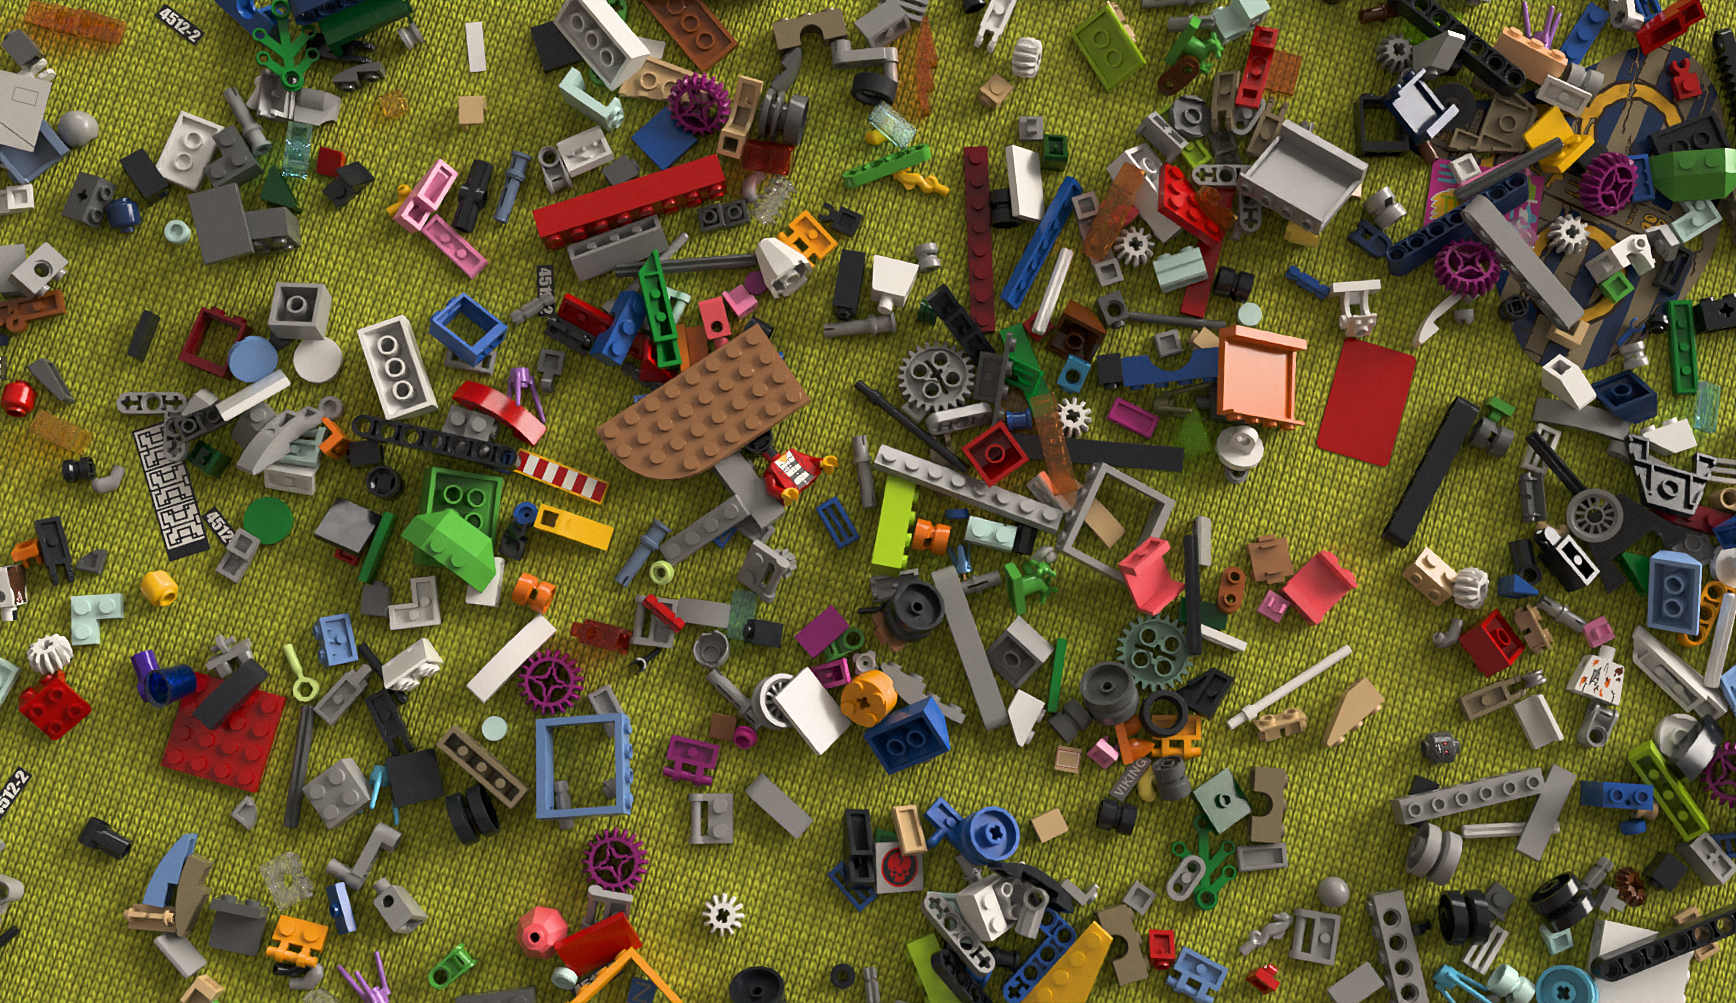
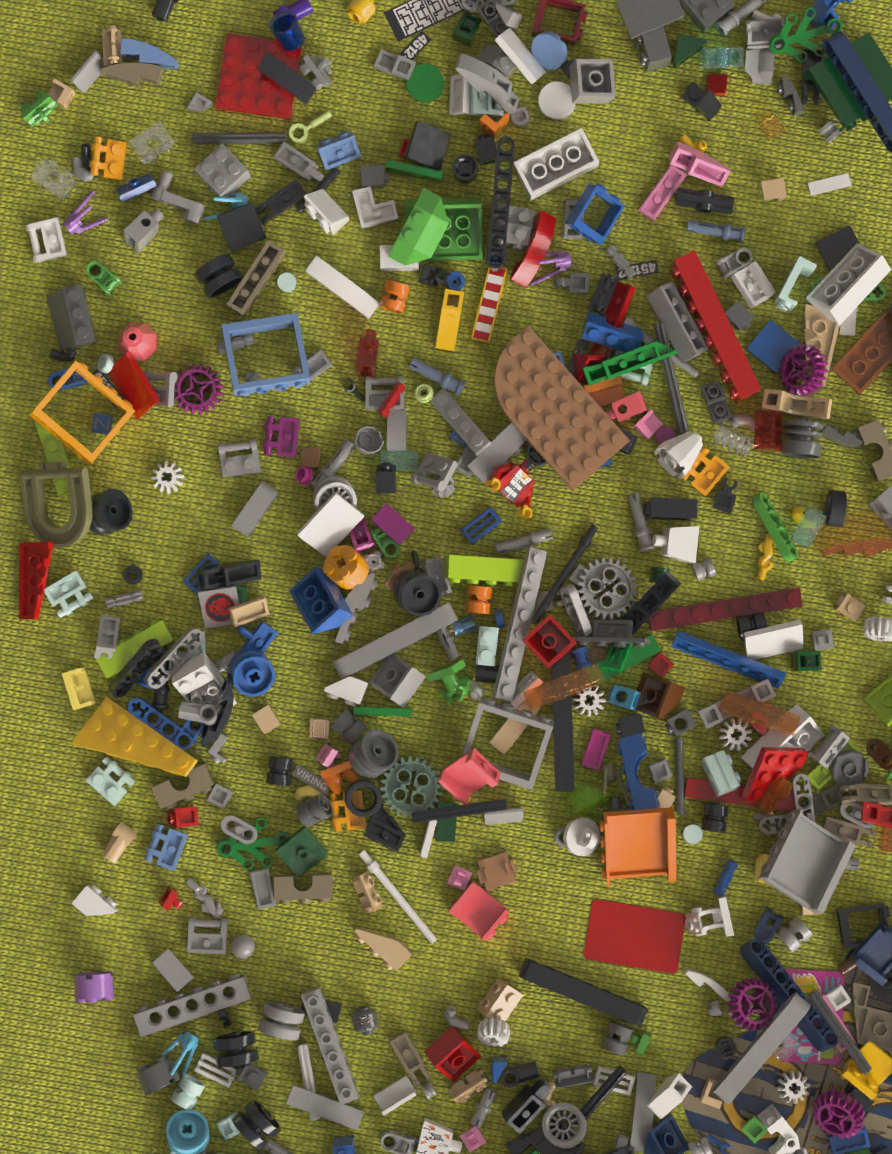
camera: 90 degrees right, 5 degrees up
(238, 924) = (115, 111): dark grey bracket -> none
(548, 693) = (319, 319): magenta gear -> none
(845, 58) = (861, 481): light grey beam -> none
(1052, 291) = (689, 673): white axle -> none
(1231, 589) = (468, 842): dark orange plate -> none

